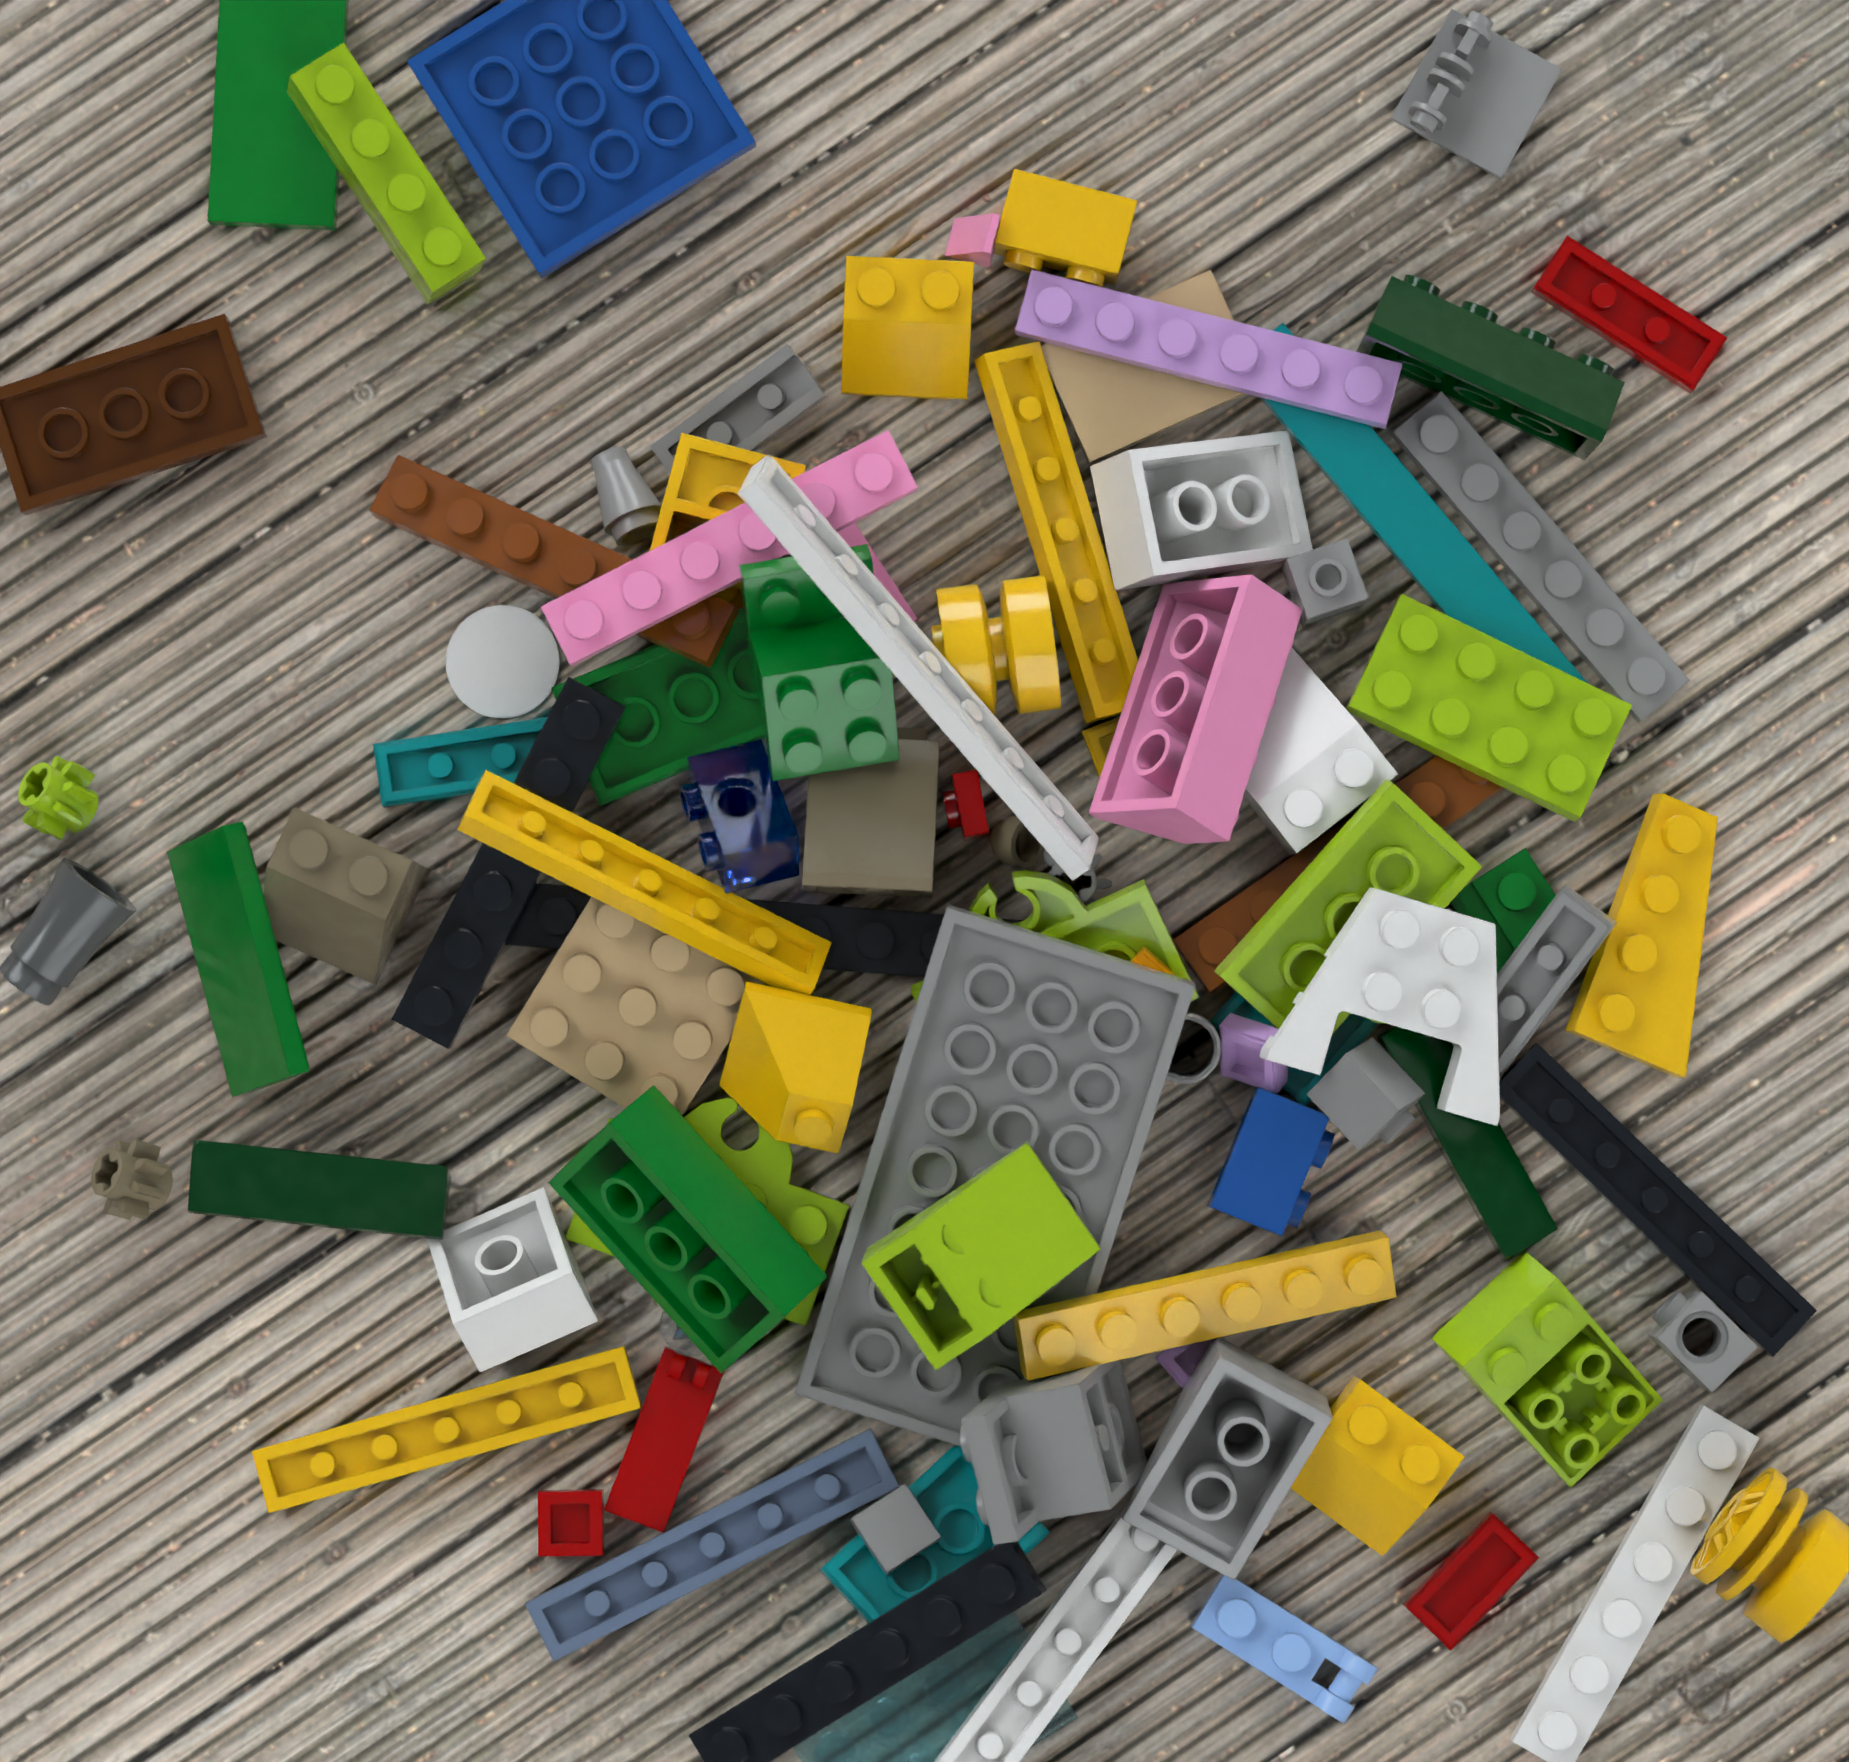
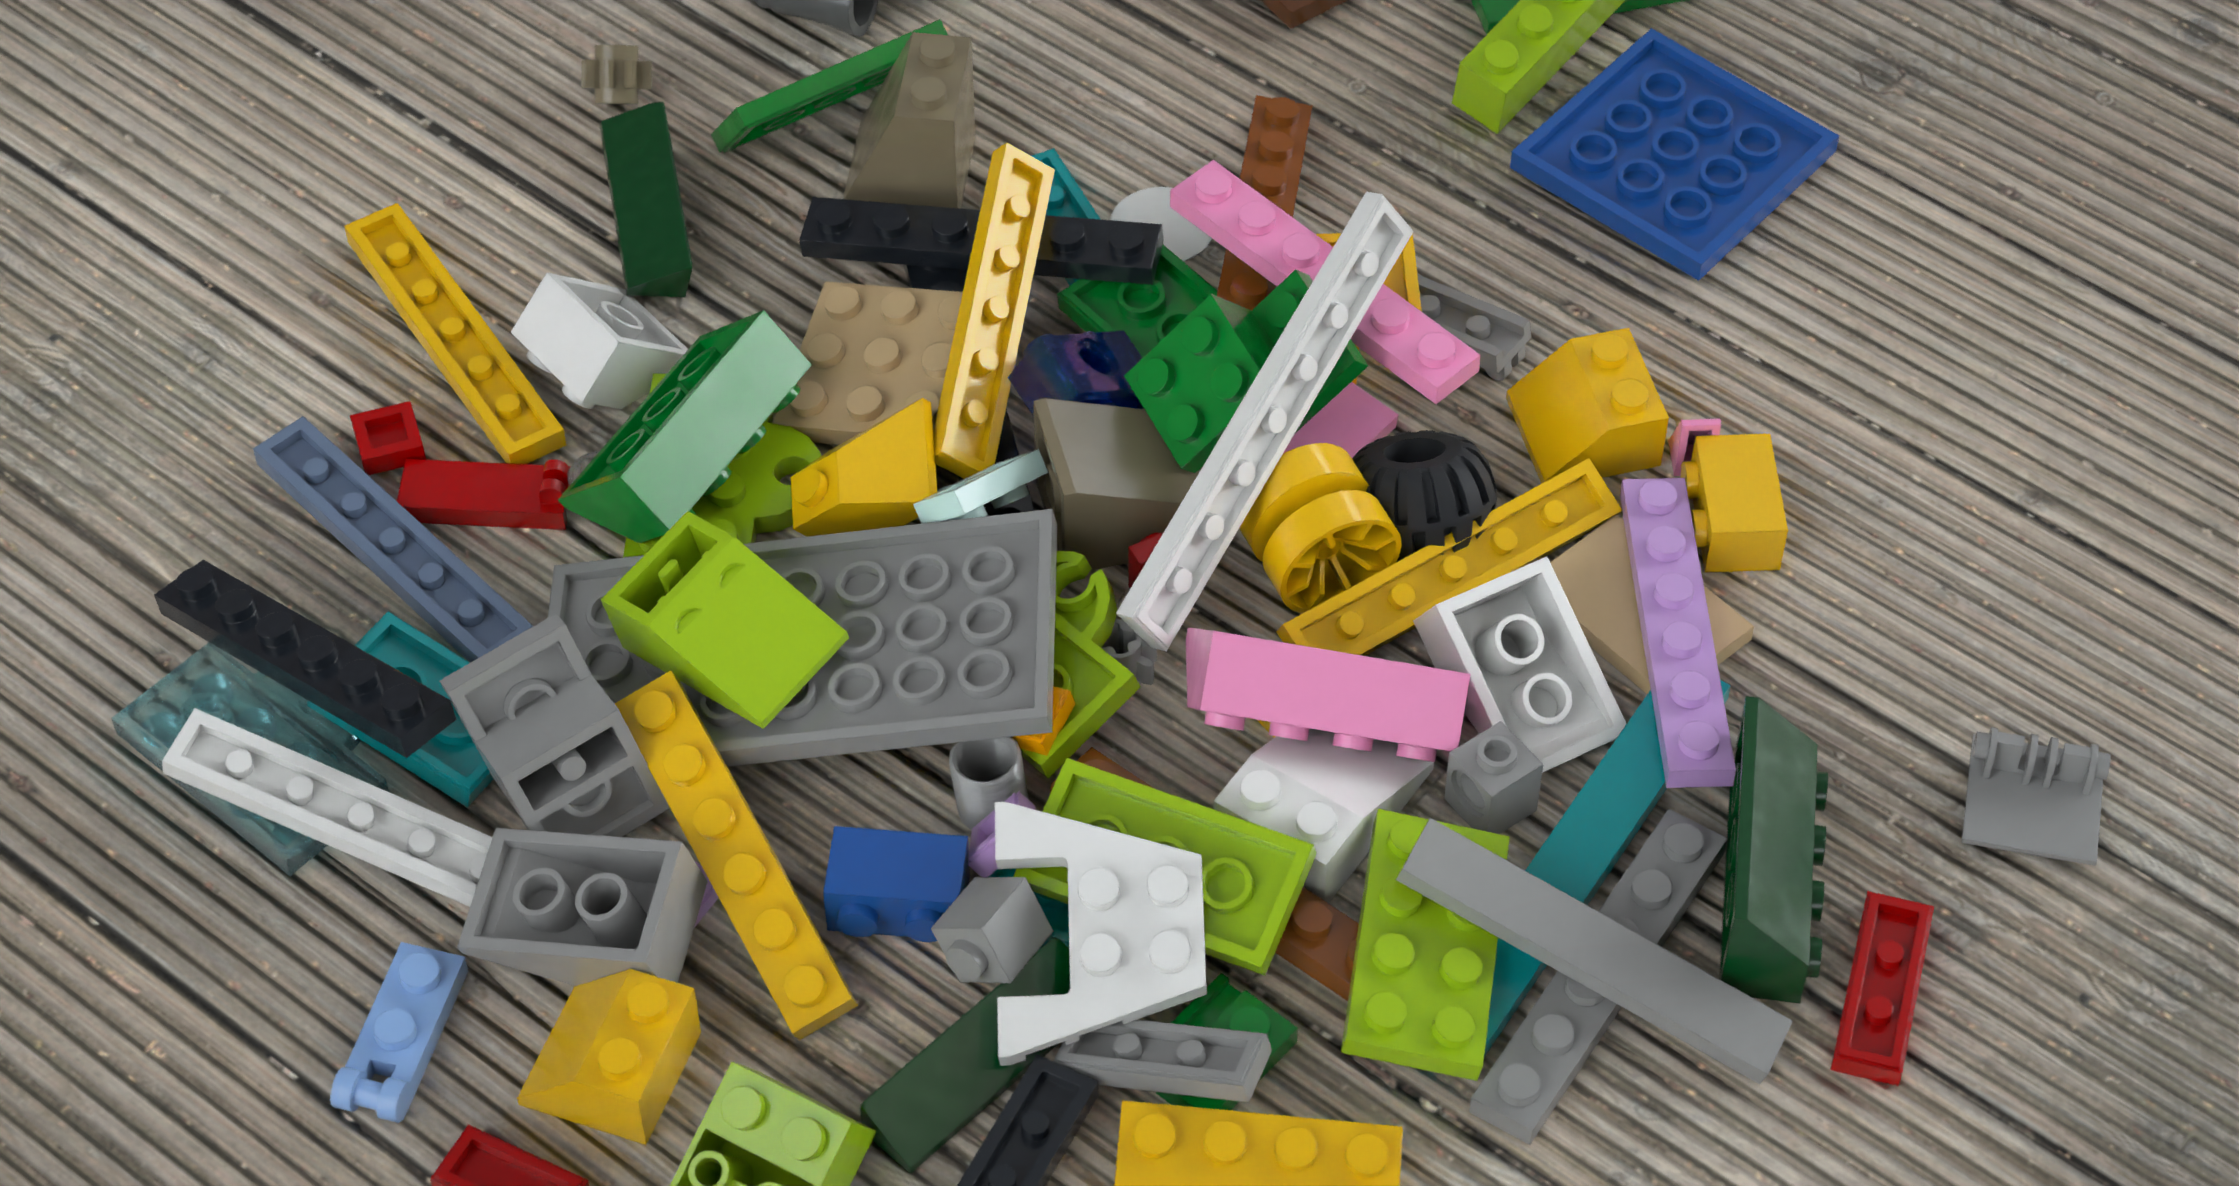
camera: 70 degrees right, 35 degrees down
(871, 964) = (998, 483): none -> light aqua plate
(895, 1529) = (436, 652): light grey tile -> none
(951, 500) = (1429, 486): none -> black wheel
(1547, 566) = (1595, 951): none -> light grey tile

